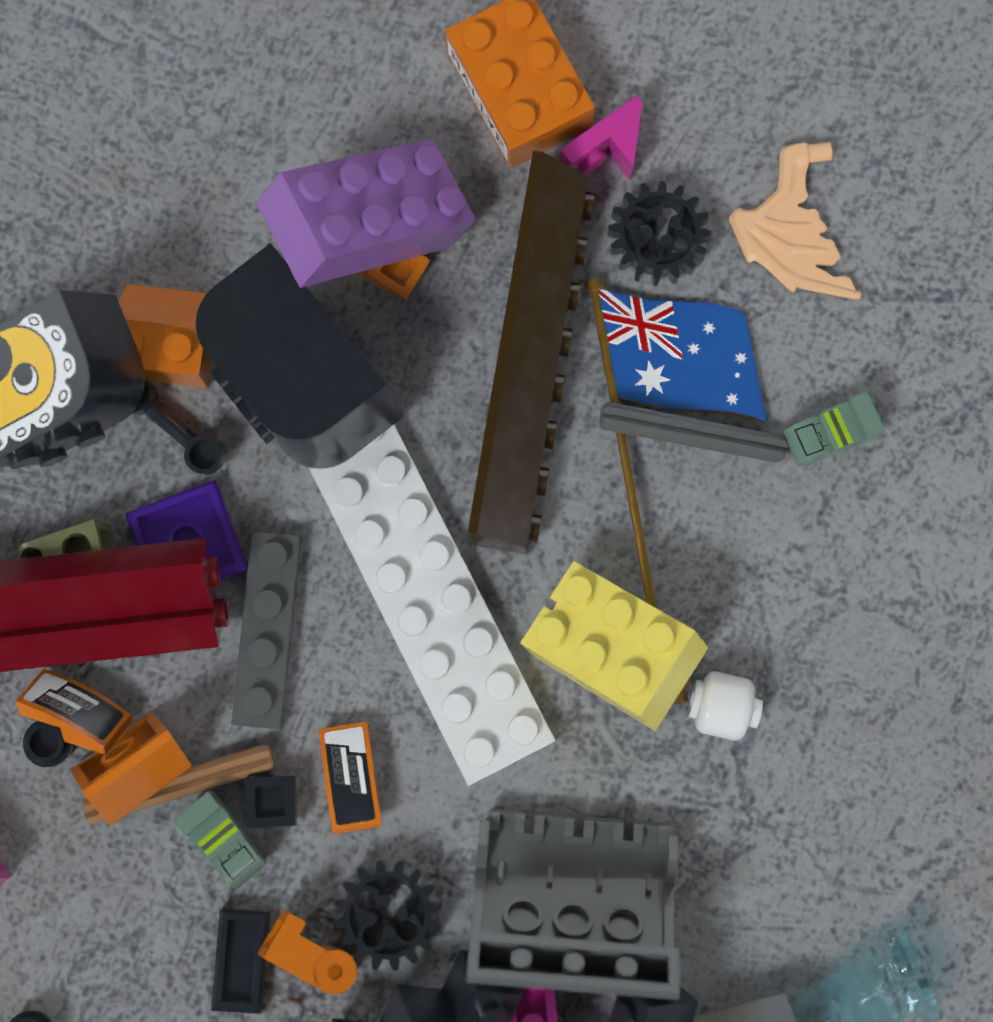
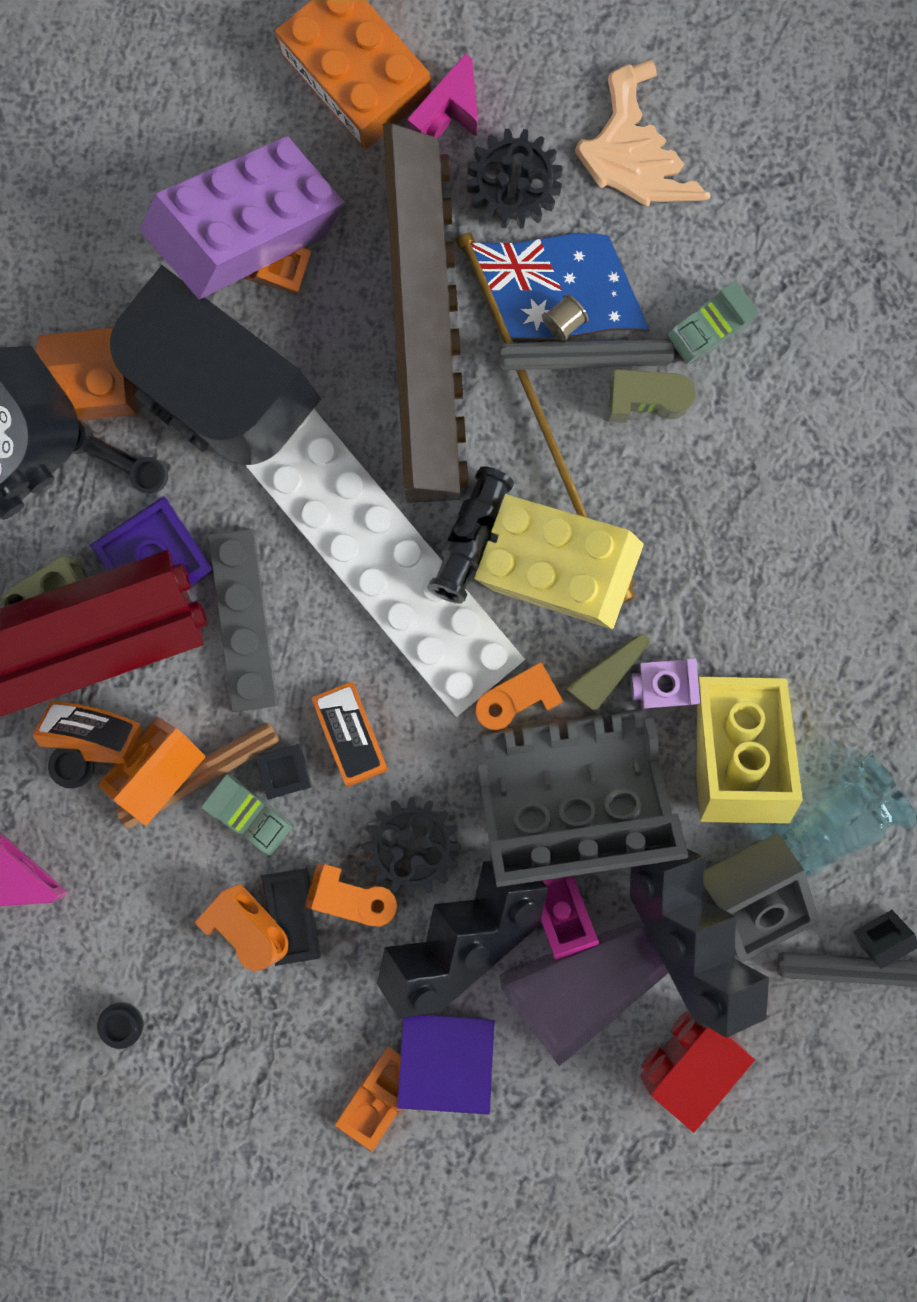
camera: 15 degrees left, 5 degrees up
(190, 961) = (246, 927): none -> orange leg
(518, 783) = (498, 706): none -> orange leg
(527, 595) = (470, 534): none -> black piece
(629, 783) = (598, 682): none -> olive slope
(679, 389) = (565, 317): none -> dark tan axle
(720, 807) = (684, 689): none -> lavender brick
(724, 706) = (668, 593): white head -> none
(750, 486) = (649, 391): none -> olive leg
(770, 896) = (746, 751): none -> light yellow slope

